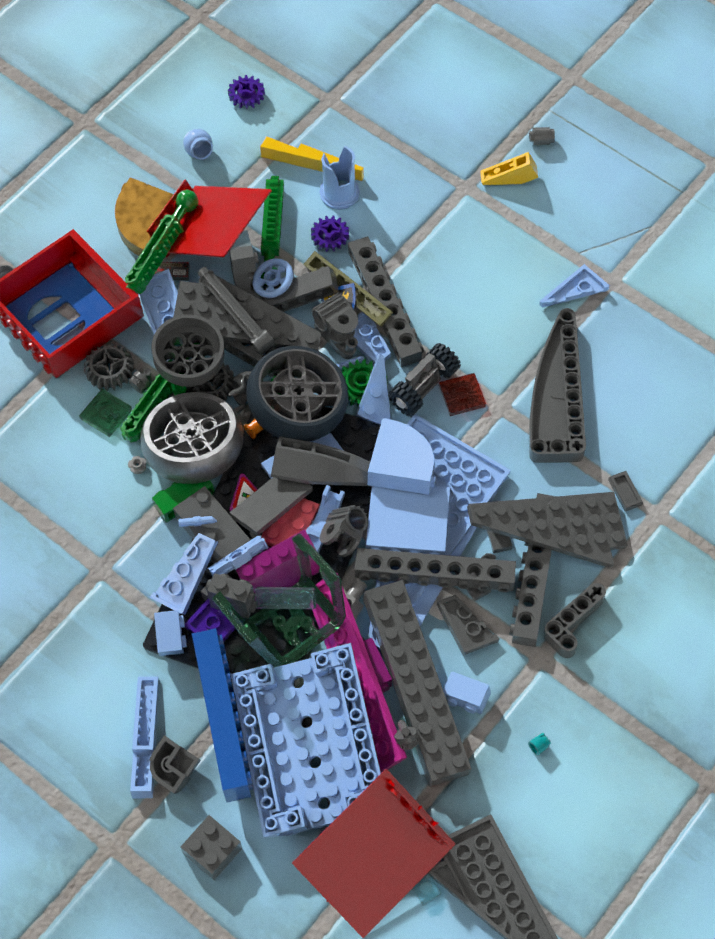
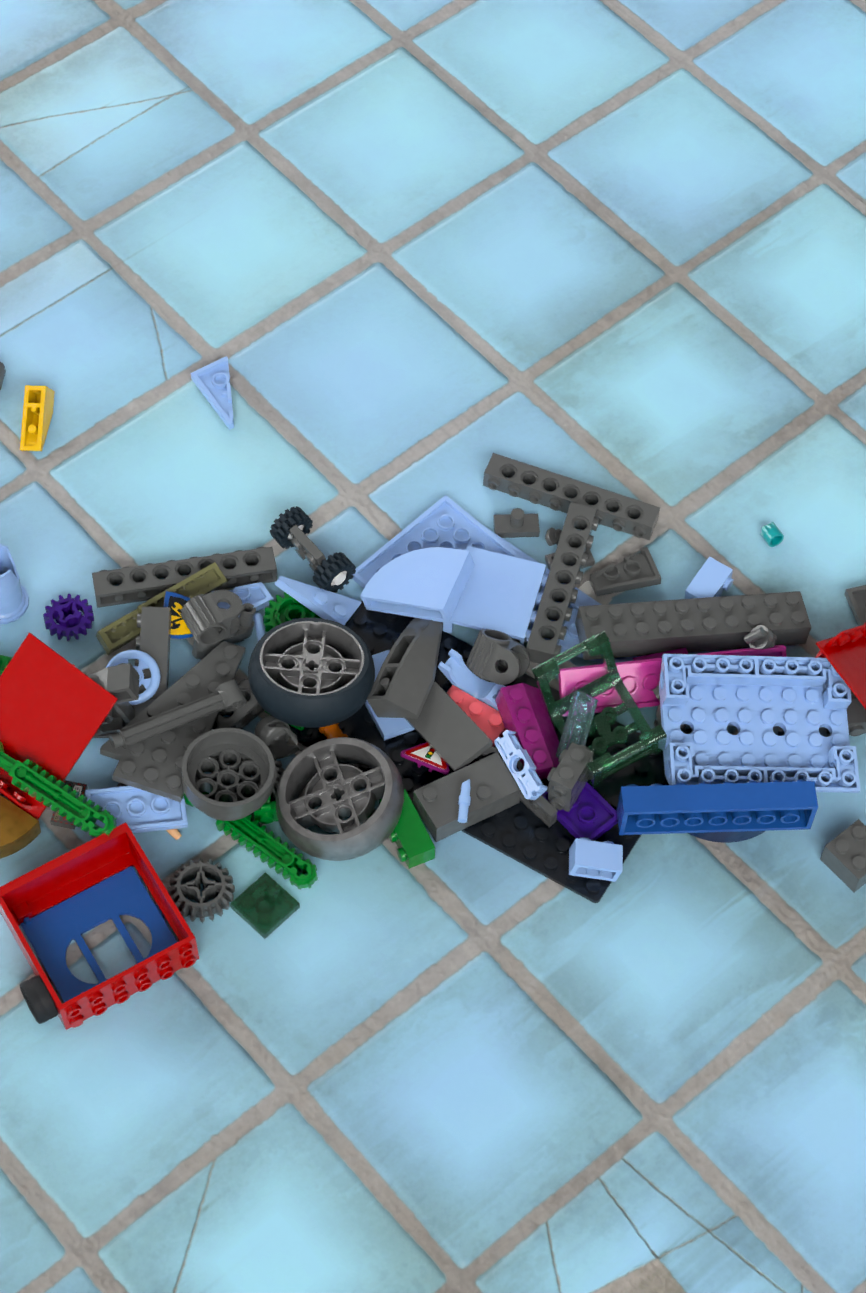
camera: 85 degrees left, 5 degrees down
(137, 469) = (353, 882): light grey plate -> none
(140, 381) = (232, 855): dark grey piece -> none
(144, 737) = (713, 911): light blue slope -> none
(172, 765) = (758, 880): dark grey brick -> none
(182, 582) = (532, 836): light blue wing -> none
(462, 394) = (332, 525): clear red tile -> none
(550, 405) = (355, 434): dark grey beam -> none
(571, 524) = (528, 455): dark grey wing -> none
(577, 615) = (634, 477): dark grey beam -> none
(625, 491) = (488, 401): dark grey tile -> none

